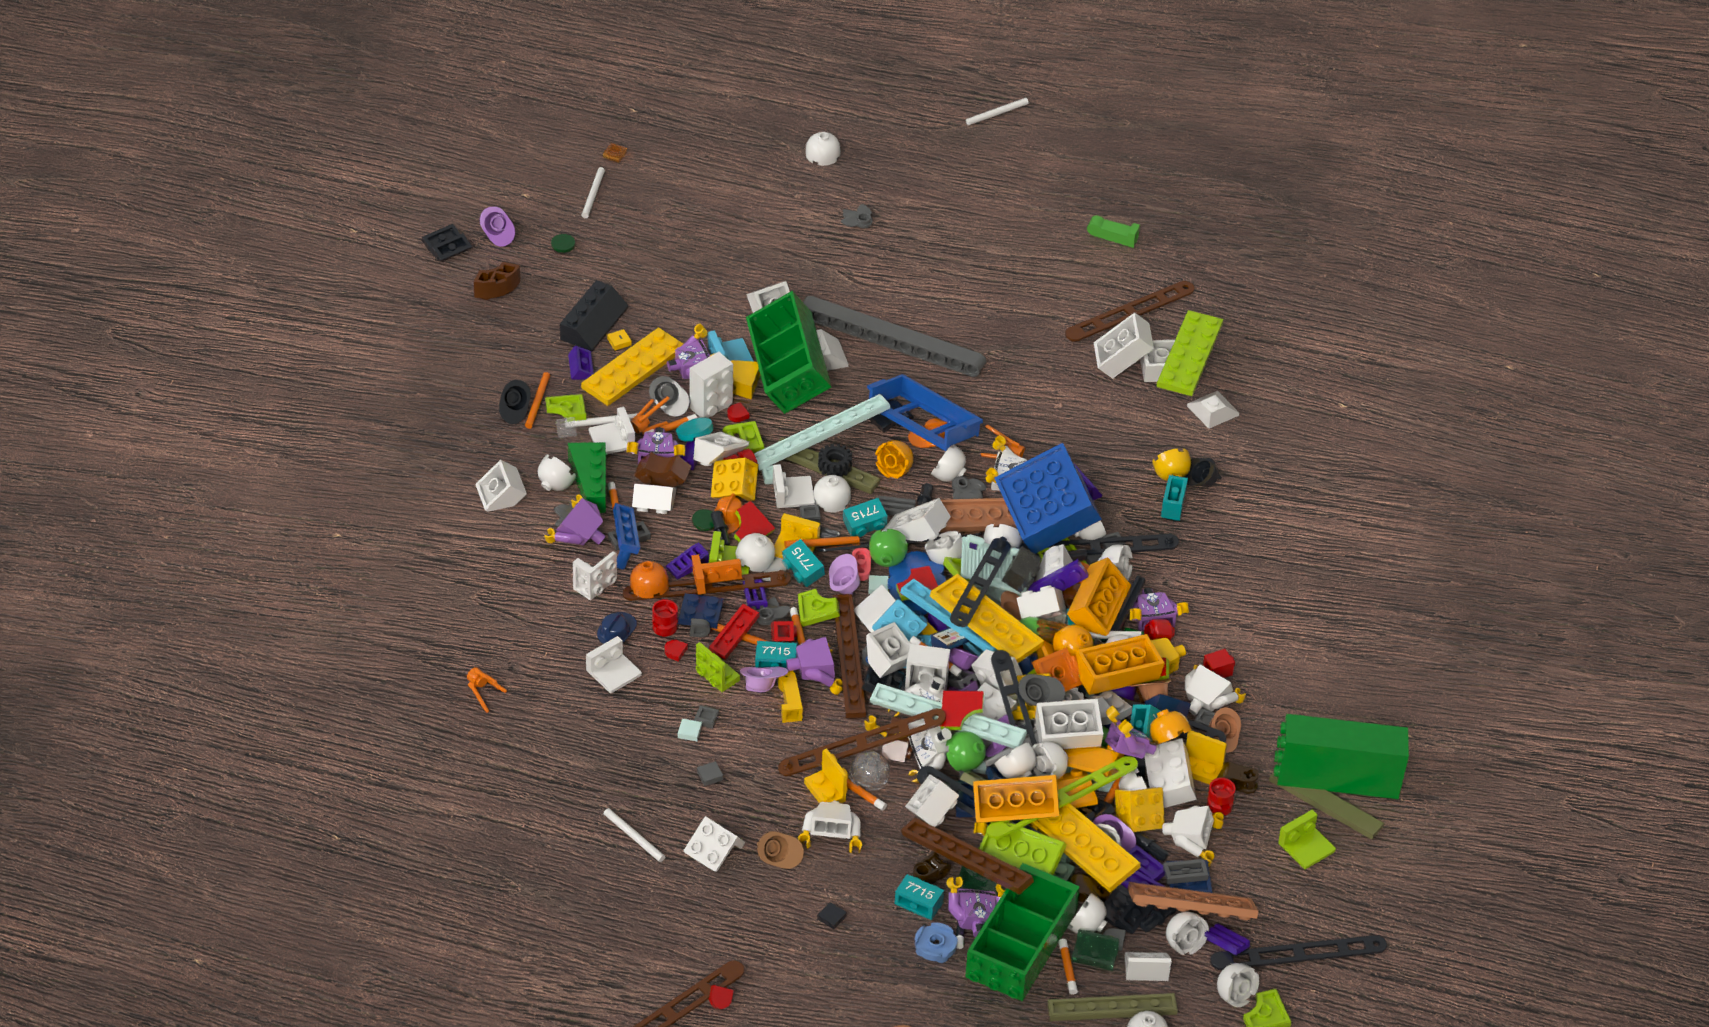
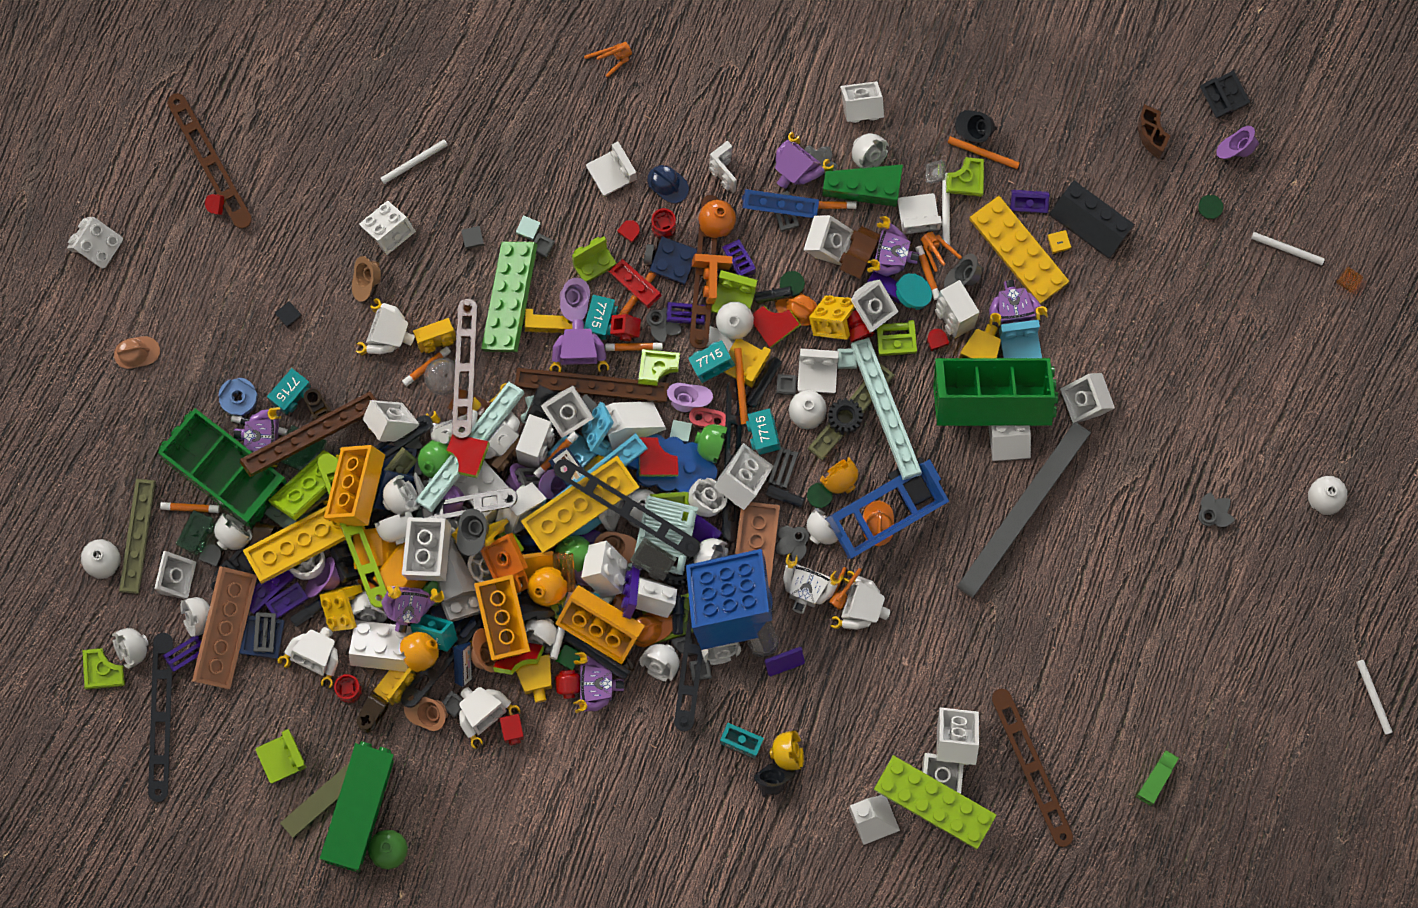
camera: 100 degrees right, 30 degrees up
(770, 728) = (509, 297): none -> plate
(916, 477) = (819, 496): none -> dark green piece
(1019, 429) = (862, 605): none -> white torso

